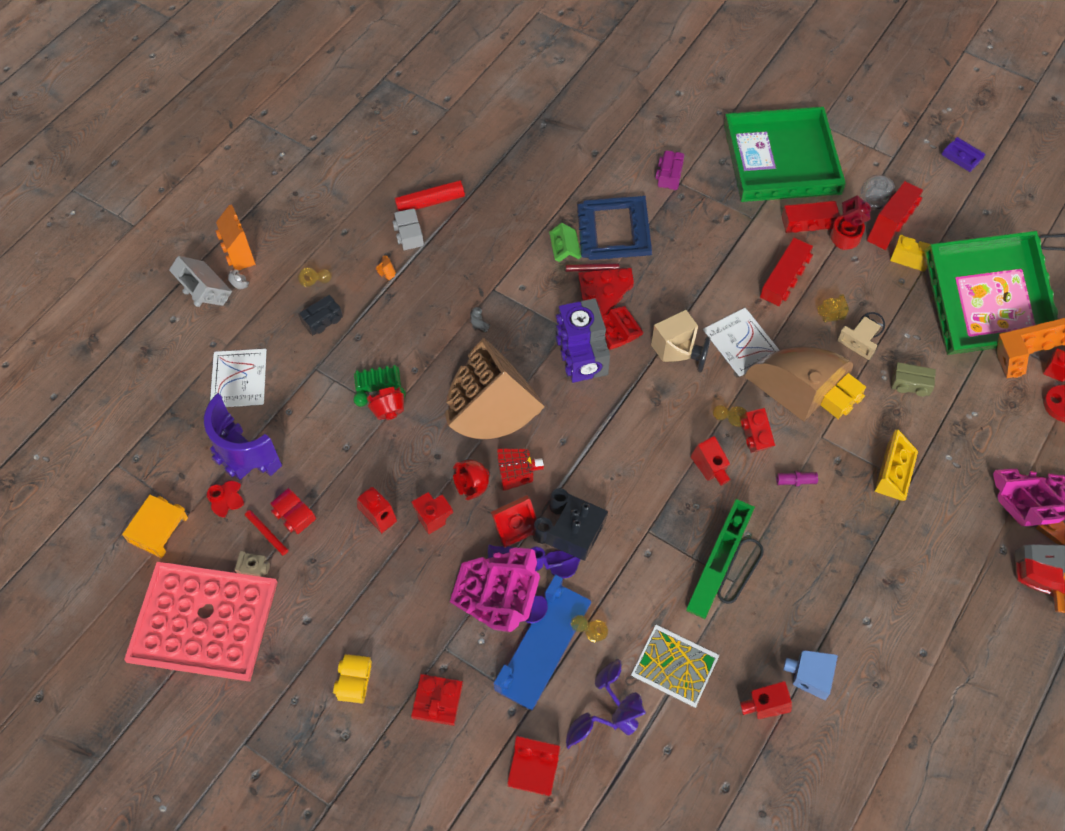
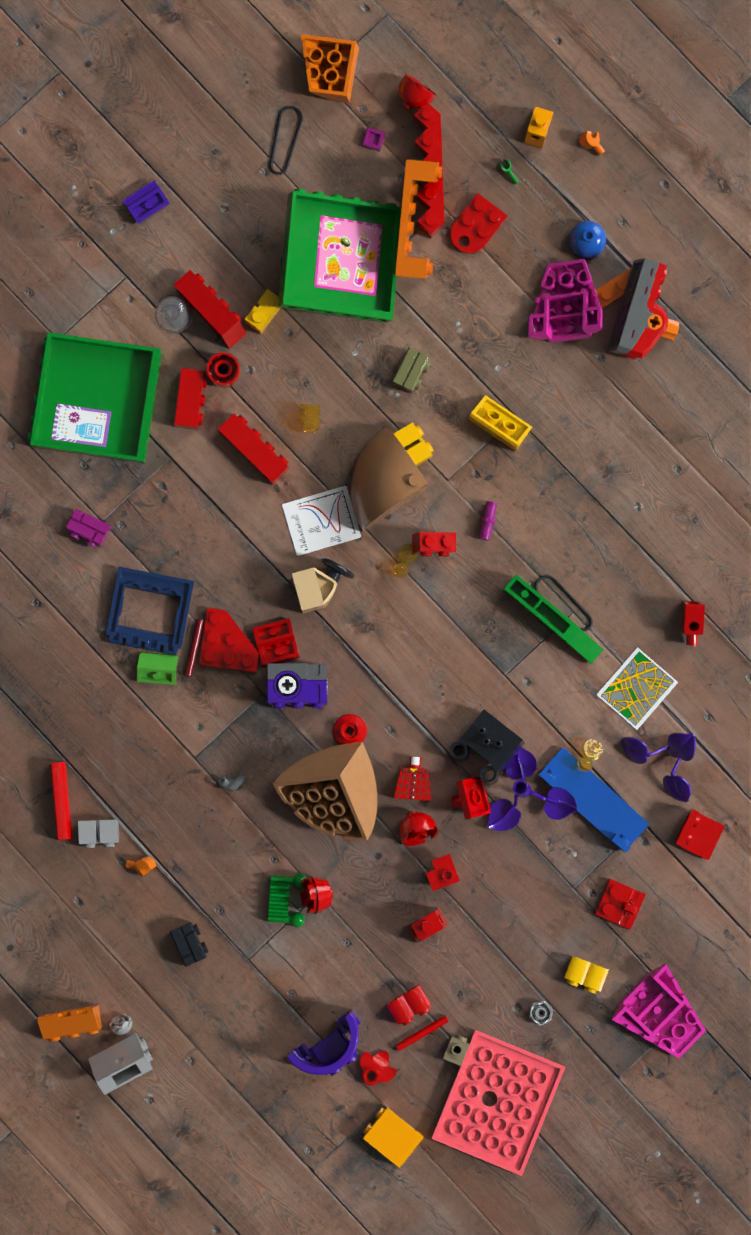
camera: 75 degrees left, 25 degrees up
(239, 377) = (239, 1039): white sticker -> none
(304, 635) = (534, 1014): none -> light grey plate
(321, 771) = (660, 1013): none -> dark pink wedge
(323, 276) = (135, 934): clear yellow plate -> none
(498, 588) = (540, 830): dark pink wedge -> none
(556, 412) = (343, 723): none -> red piece
(711, 460) = (448, 598): red torso -> none
(813, 672) = (674, 572): medium blue torso -> none
(856, 210) = (215, 359): dark red brick -> none
(860, 337) = (348, 398): tan piece -> none

